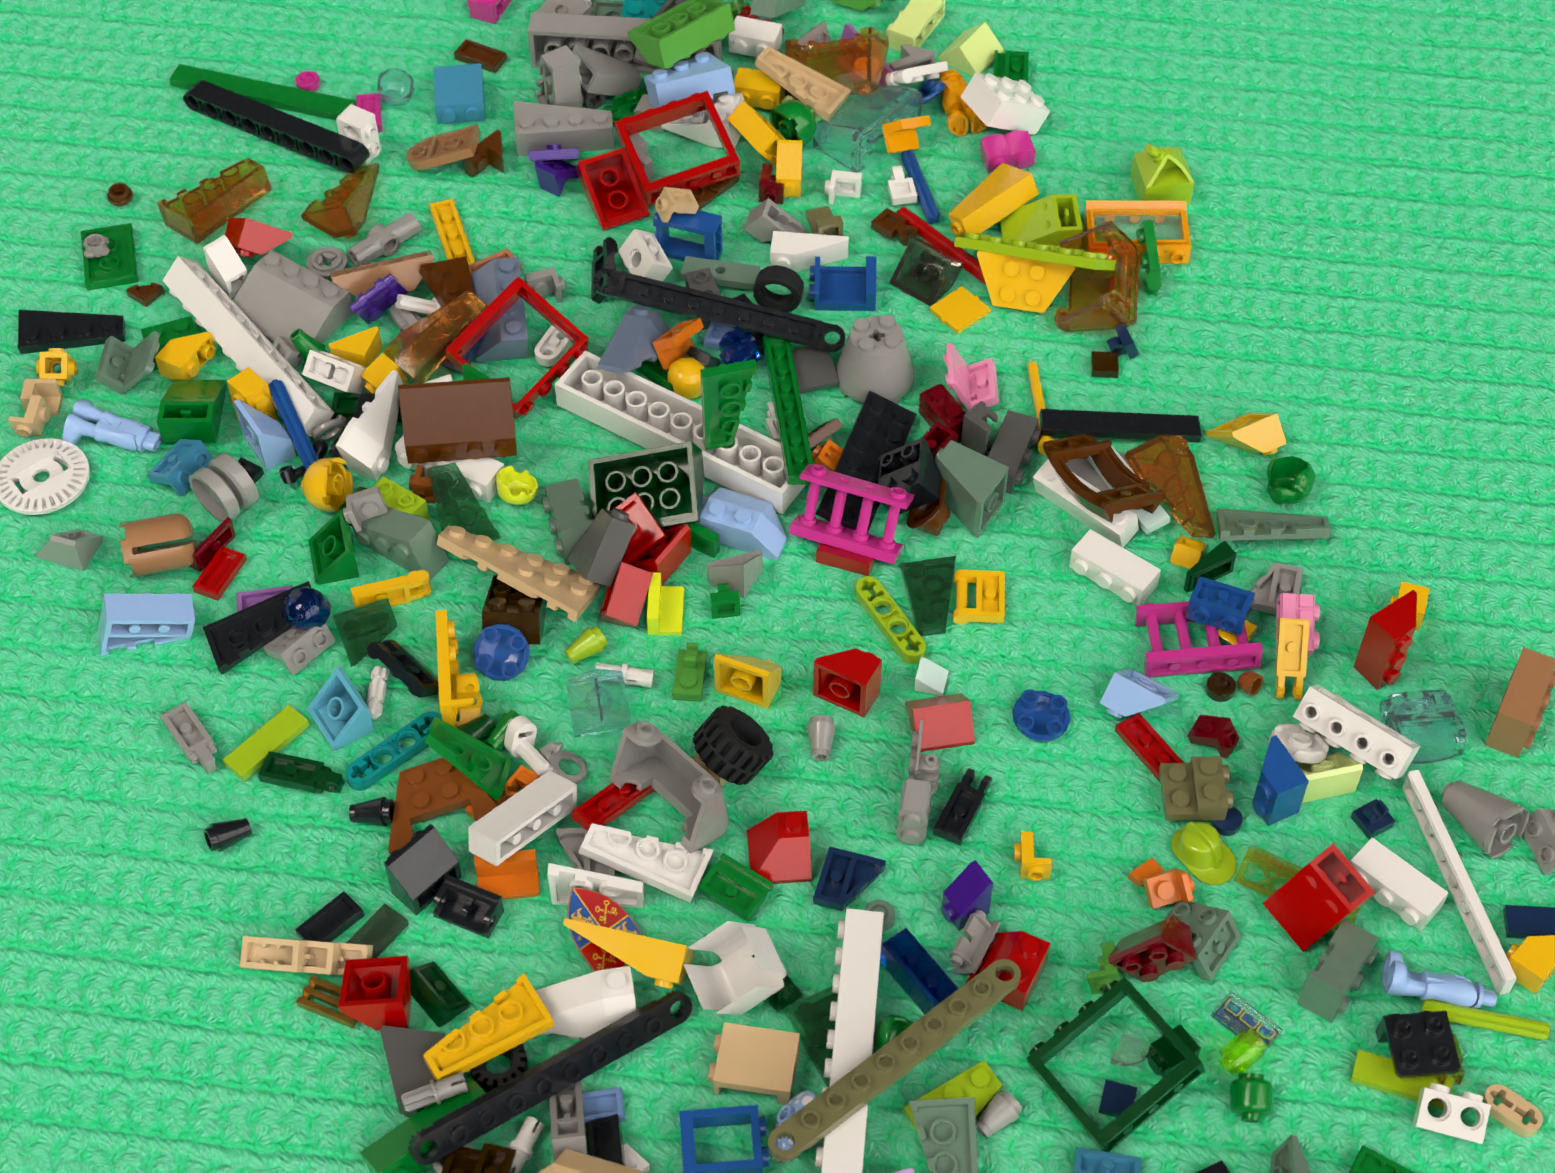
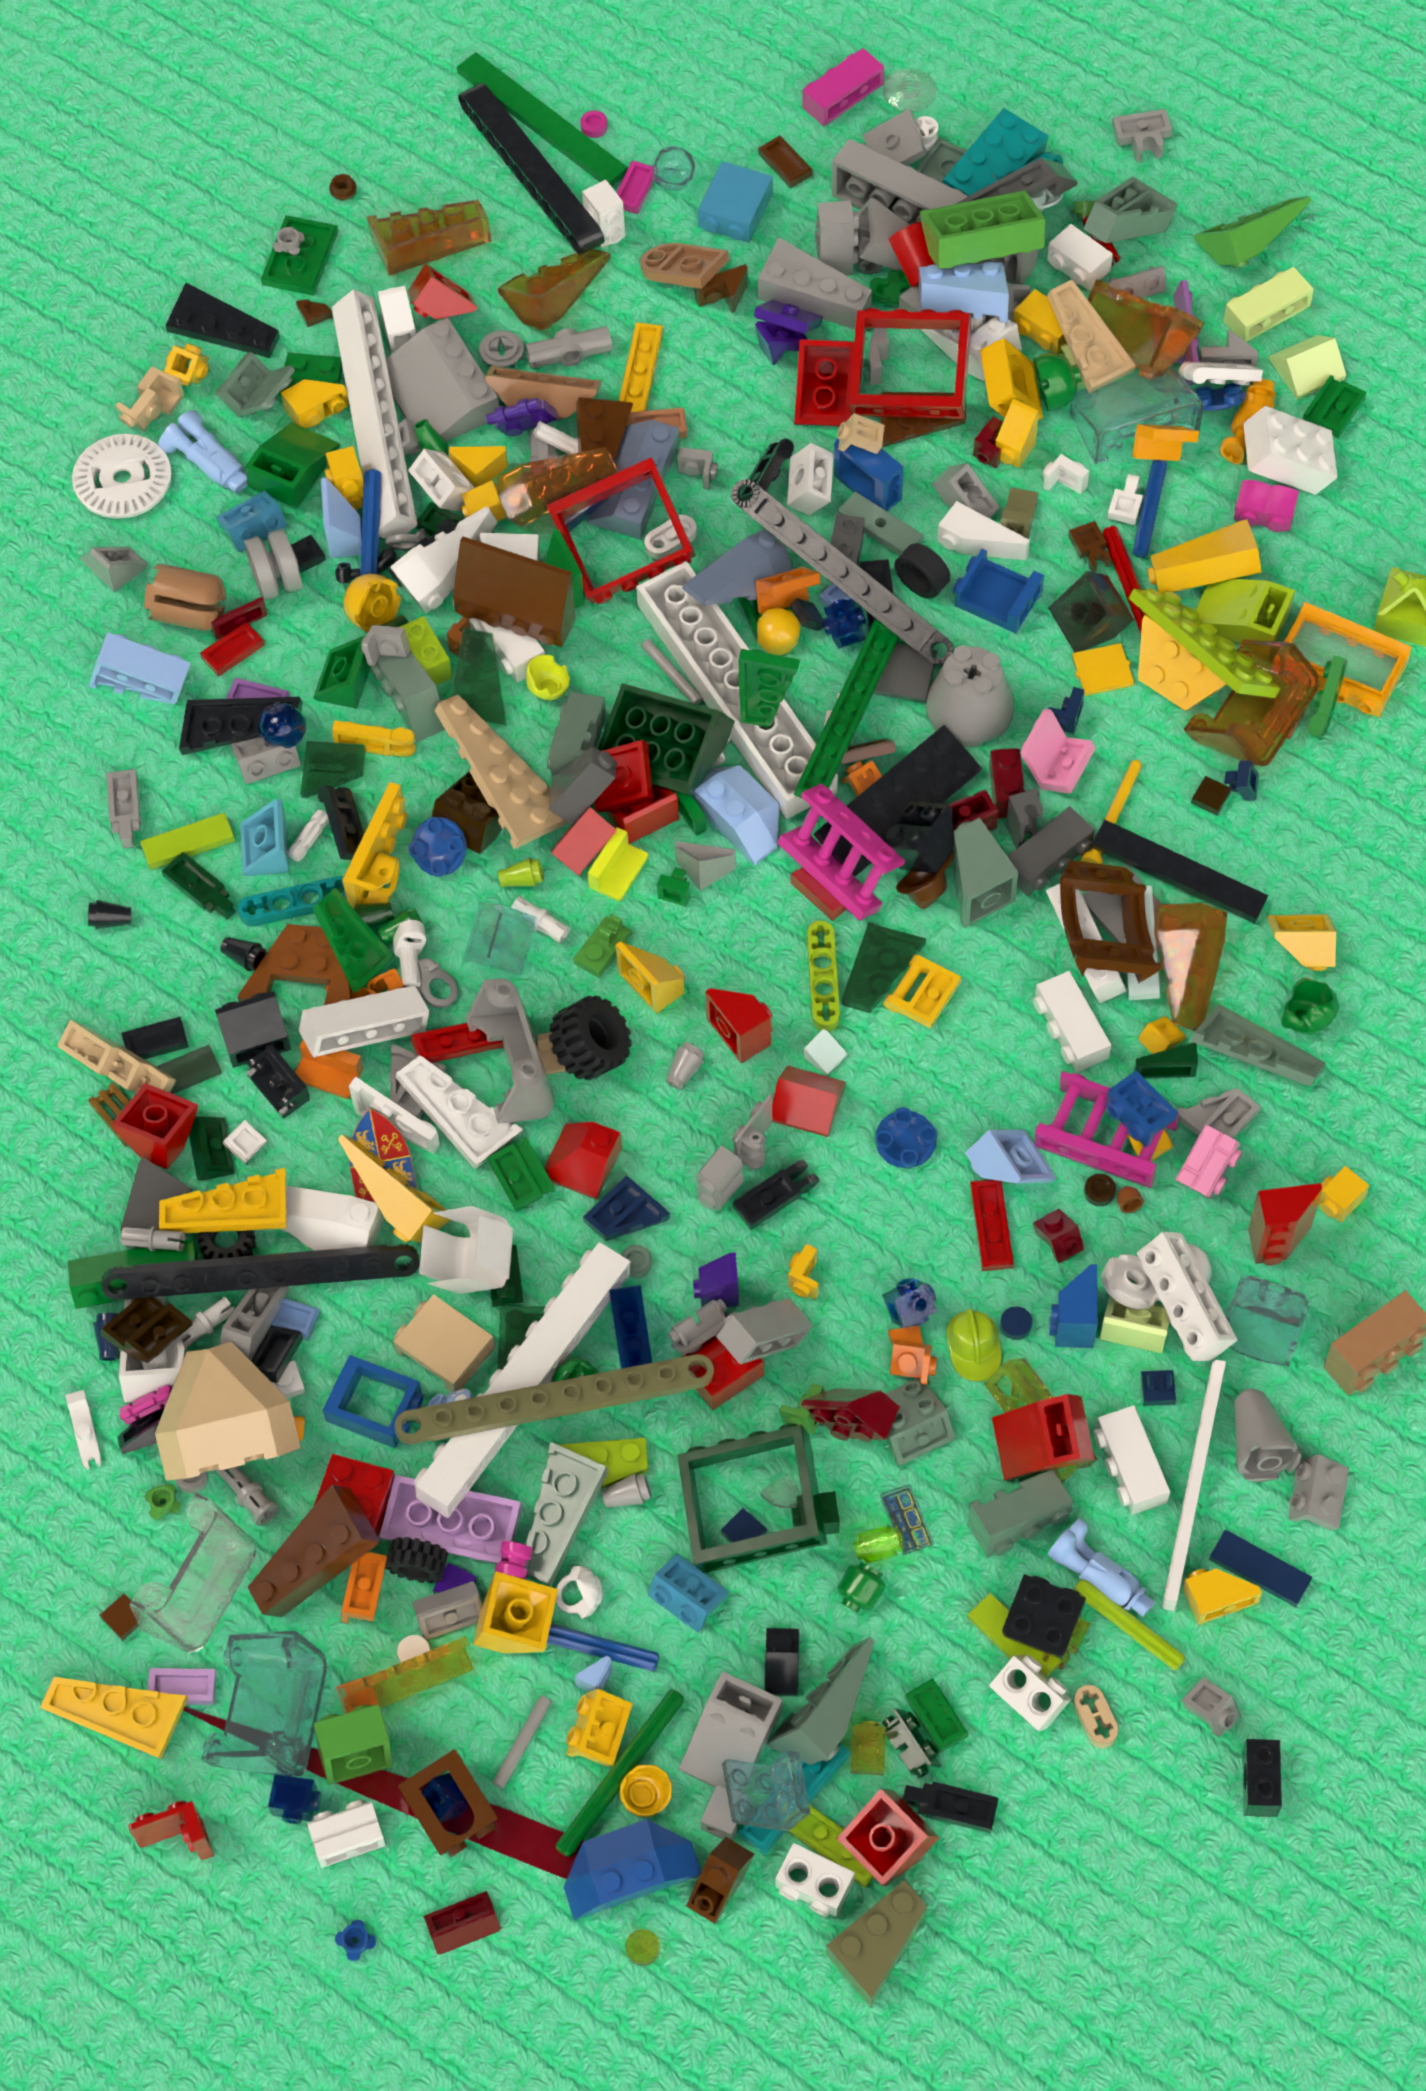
camera: 30 degrees right, 10 degrees up
(466, 972) = (244, 1142): none -> white tile
(608, 440) = (672, 673): none -> light grey bar
(631, 68) = (911, 251): none -> red brick
(960, 342) = (1070, 711): none -> dark blue bracket
(1035, 916) = (764, 1330): none -> light grey brick
(1135, 841) = (910, 1302): none -> brick
(1195, 789) = (999, 1280): olive plate -> none
(1291, 655) = (1180, 1189): yellow hinge -> none

